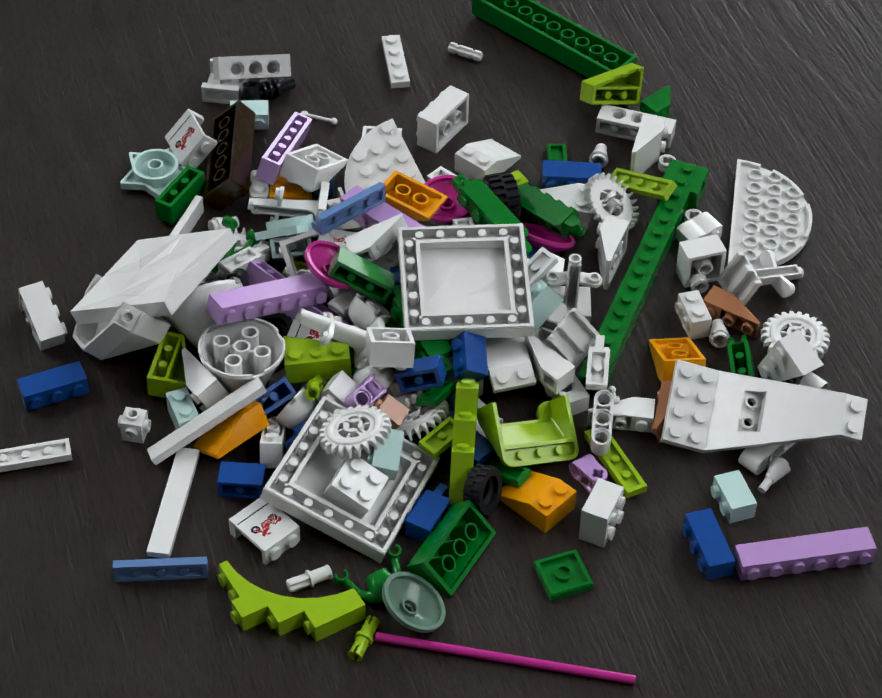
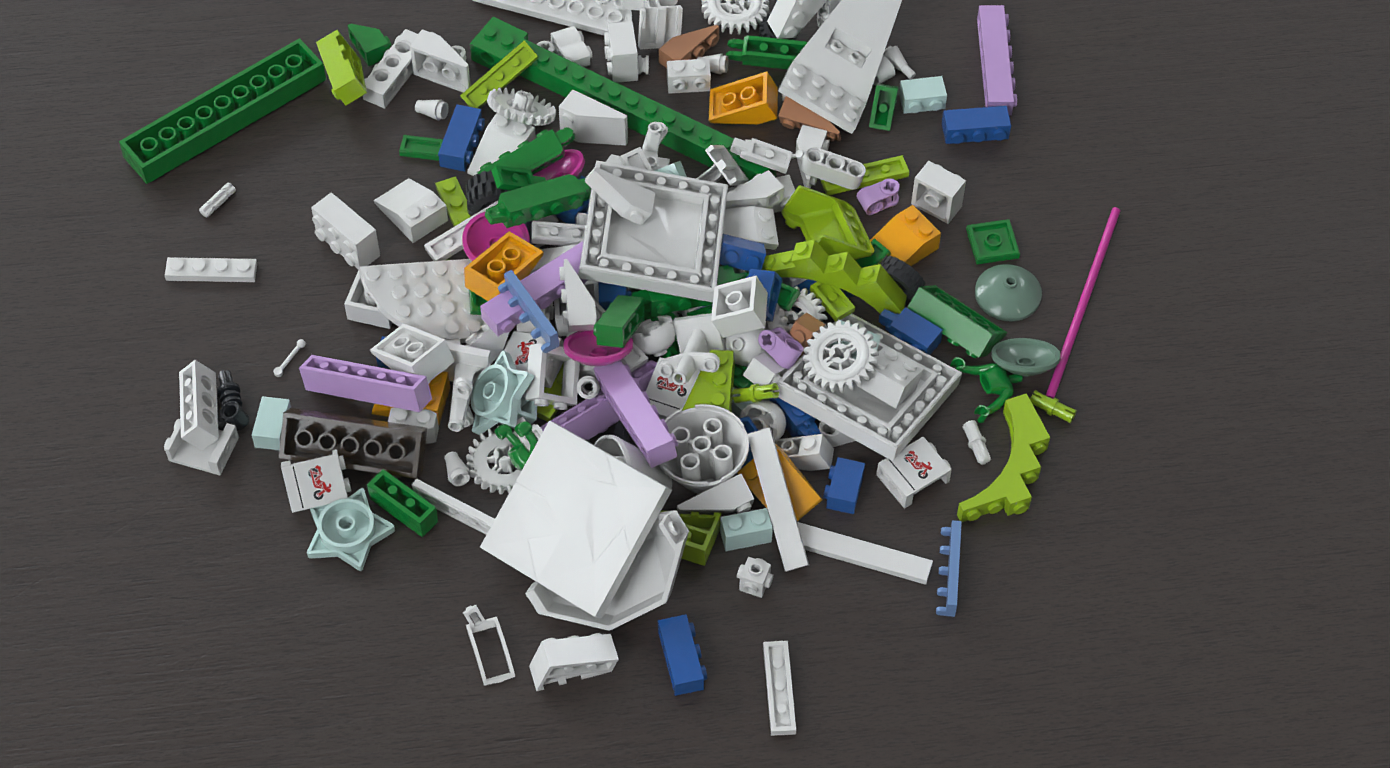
camera: 80 degrees left, 10 degrees up
(76, 264) = (483, 625): none -> white sword
(481, 251) = (622, 195): none -> white slope
(502, 602) = (1005, 300): none -> sand green dish
(507, 192) = (514, 178): none -> green hinge
(708, 464) = (883, 106): none -> green slope

